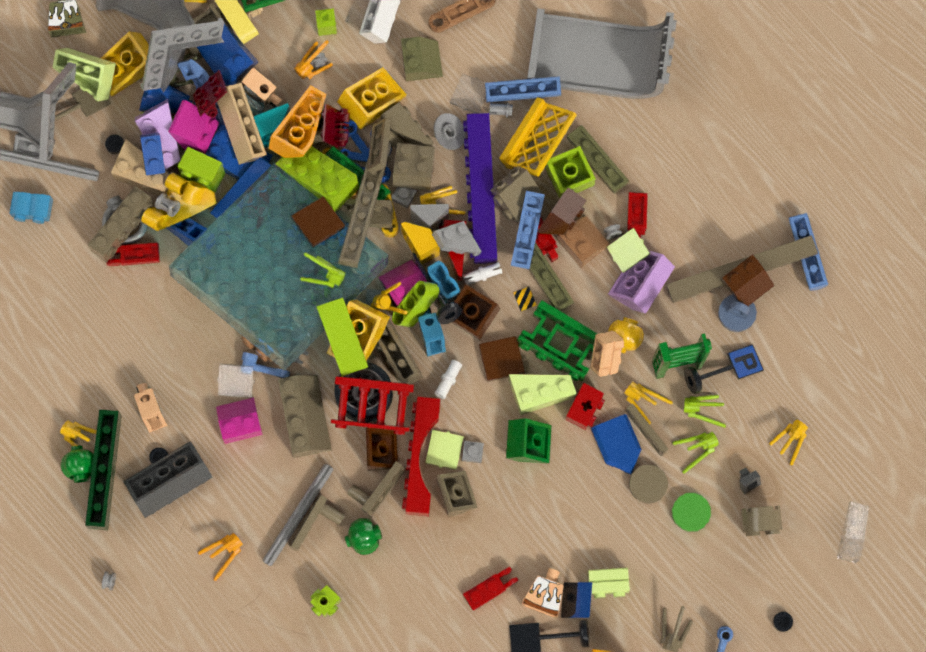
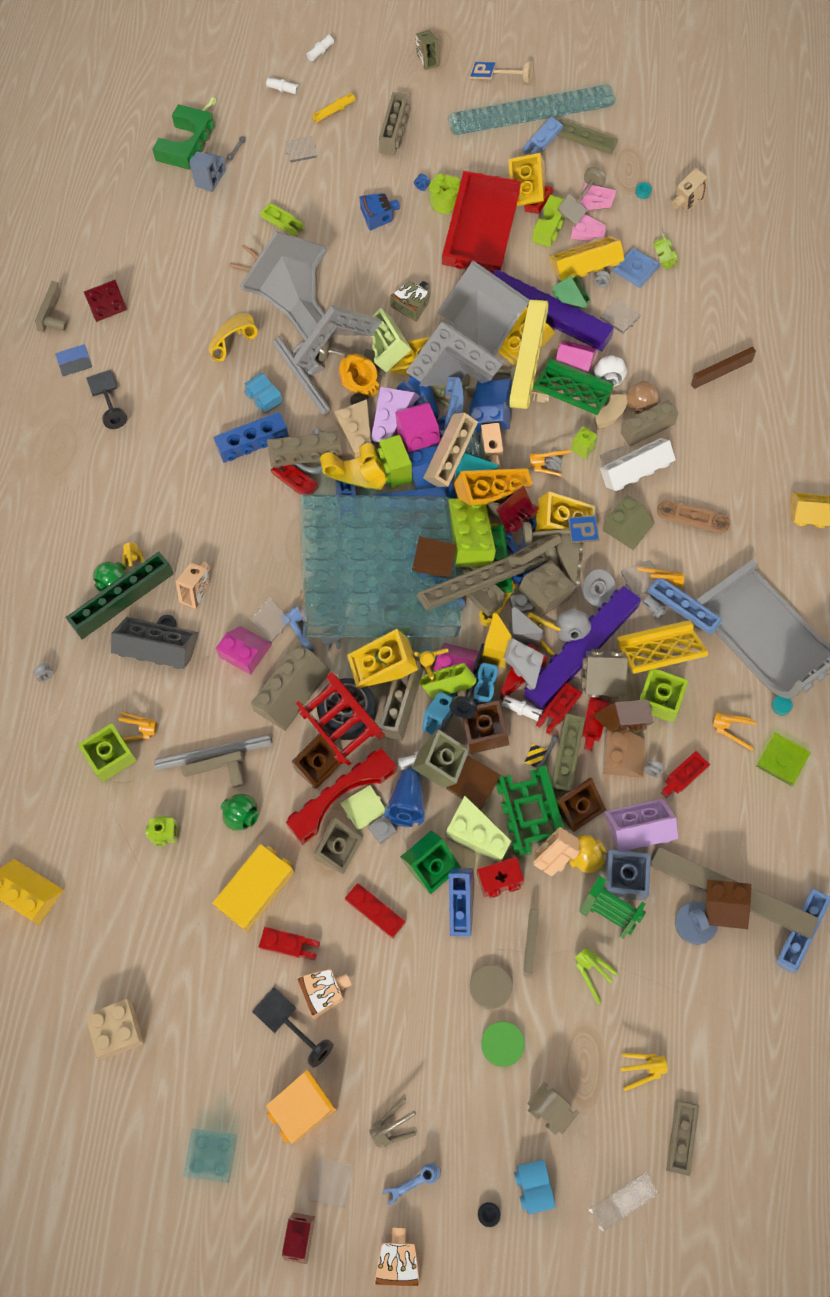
camera: 50 degrees right, 10 degrees down
(69, 224) = (242, 436): none -> blue brick
(94, 122) = (358, 374): none -> light orange helmet
(152, 153) = (370, 417): blue brick -> none
(167, 205) = (347, 463): light grey bush -> none
(209, 94) = (444, 413): dark red hinge -> none
(225, 588) = (106, 752): none -> lime brick
(334, 274) = (404, 599): lime plant -> none
(342, 336) = (366, 649): lime sticker -> none
(372, 502) = (277, 793): dark tan piece -> none
(395, 97) = (580, 529): none -> dark tan piece
(428, 575) = (254, 887): none -> yellow brick
(461, 178) = (573, 625): none -> light grey plant
(467, 364) = (441, 759): none -> olive slope
(471, 414) = (406, 801): none -> blue cone
(494, 74) = (672, 577): none -> light orange plant
(506, 242) = (560, 706): none -> red hinge
(524, 510) = (375, 910): none -> red plate
(526, 274) = (554, 739): none -> dark grey hinge
(527, 230) = (587, 705): medium blue slope -> none
(575, 447) = (461, 901): none -> blue slope
(576, 600) = (341, 1020): sticker -> none
(590, 305) = (580, 805): none -> reddish brown slope
(598, 159) = (695, 706): olive plate -> none
(609, 581) = (380, 1031): yellowish green brick -> none
(618, 443) = (498, 931): blue tile -> none
(627, 151) = (723, 721): none -> light orange plant
(628, 250) = (652, 792): yellowish green piece -> none
(636, 391) = (551, 905): yellow plant -> none
(654, 104) = (781, 705): none -> teal tile
(666, 323) = (628, 874): none -> sand blue brick
(690, 142) = (783, 759): none -> clear neon green tile
(706, 442) = (570, 998): lime plant -> none
(743, 361) = (663, 966): black piece -> none
(749, 480) = (574, 1066): dark grey tile -> none
(795, 577) = (535, 1187): none -> dark azure brick
(852, 458) = (682, 1138): none -> dark tan tile

